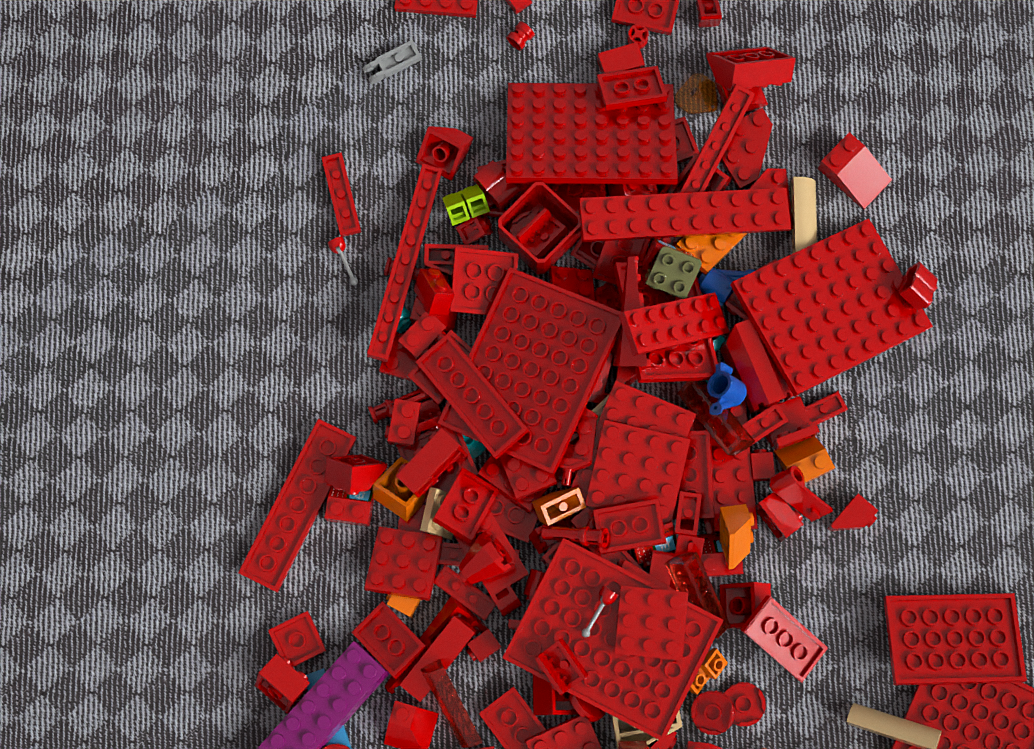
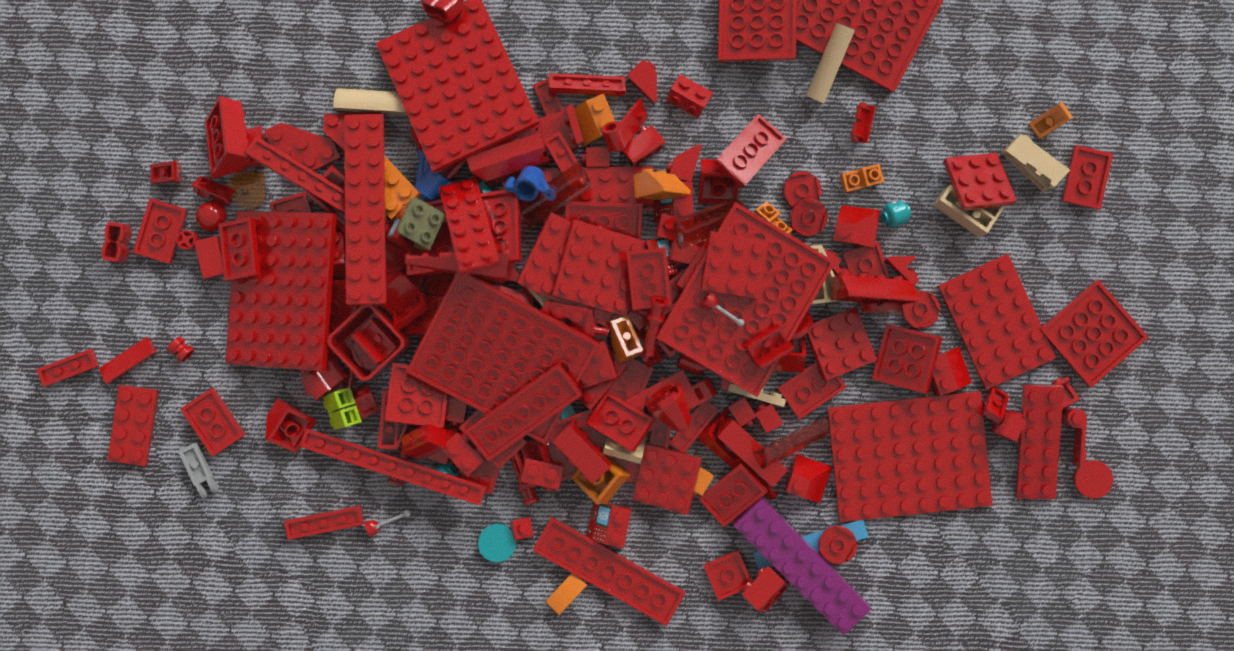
camera: 90 degrees left, 10 degrees up
(271, 458) = (565, 593): none -> orange slope
(325, 380) = (496, 543): none -> teal tile
(342, 405) = (521, 528): none -> red plate
(353, 472) = (584, 520): red slope -> none
(444, 73) = (212, 421): none -> red plate
(468, 326) = (456, 411): none -> red brick
(479, 676) = (767, 417): none -> red brick
(501, 682) = (773, 398): none -> tan plate
(587, 262) = (405, 301): none -> red bracket
(667, 58) = (211, 215): none -> red hair
(688, 514) = (639, 226): red slope -> none
(695, 53) = (205, 187): none -> red hinge
(762, 565) = (685, 164): none -> red slope
(841, 566) = (689, 96): none -> red bracket
(843, 449) = (586, 84): none -> red plate
(855, 171) = (330, 51): slope -> none

